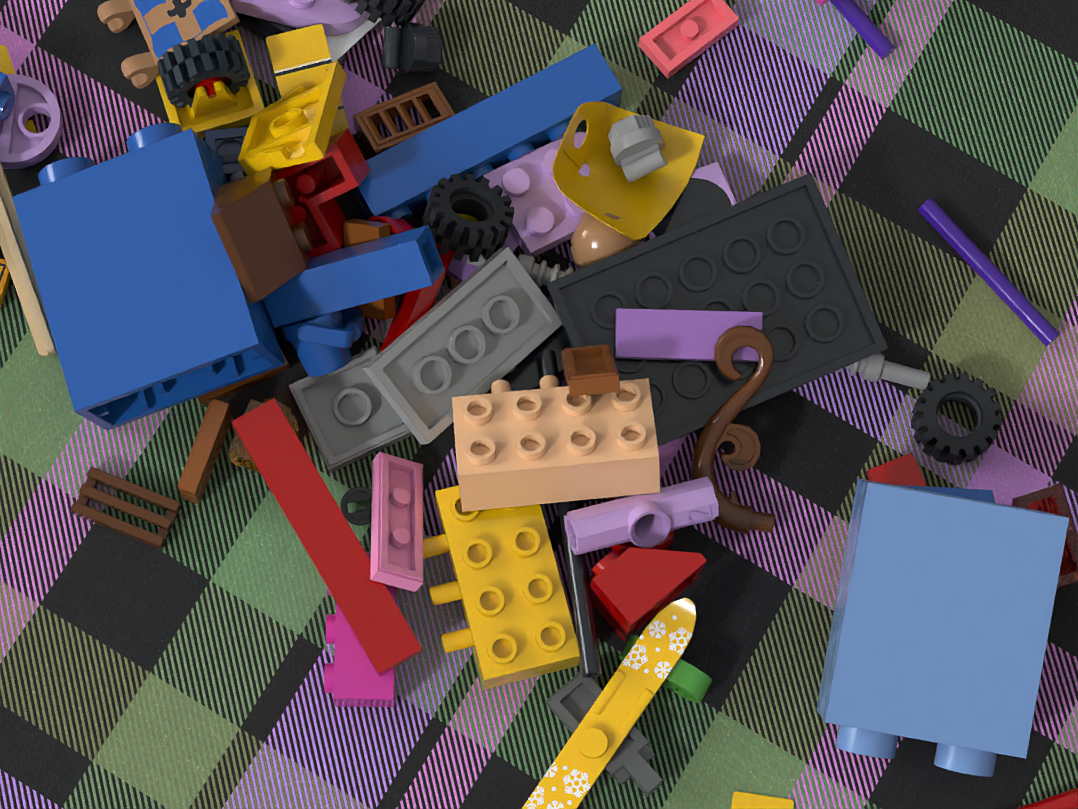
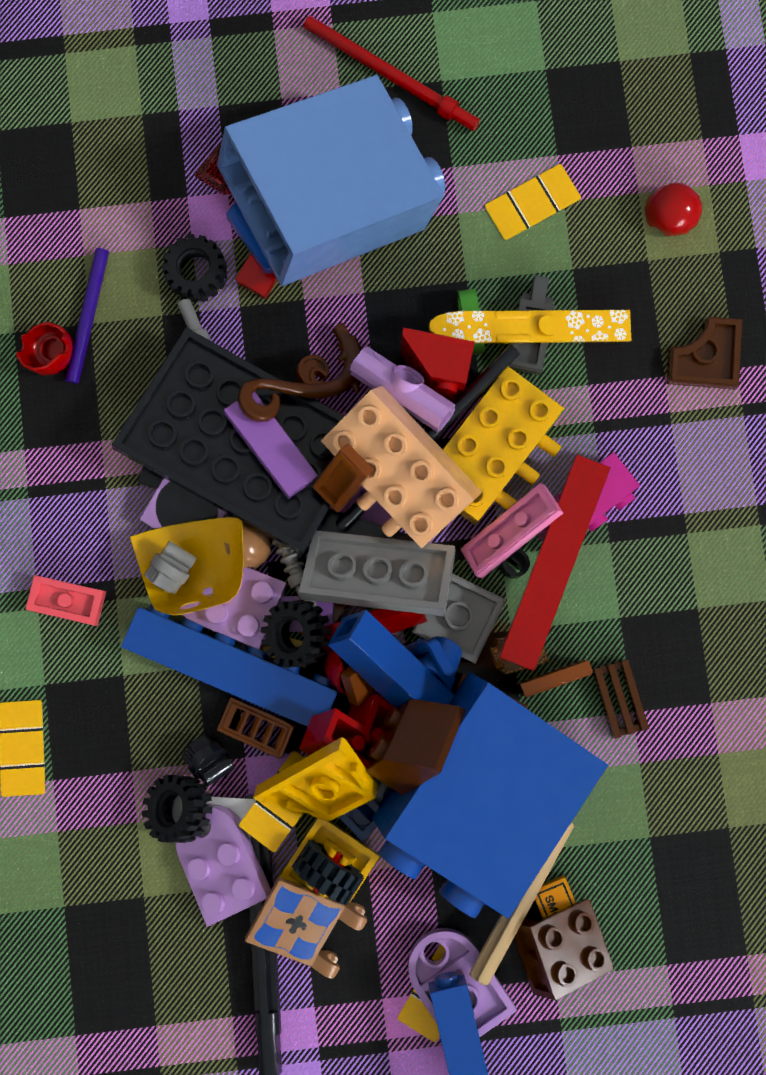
camera: 120 degrees left, 10 degrees up
(978, 197) = (45, 349): none -> red hair

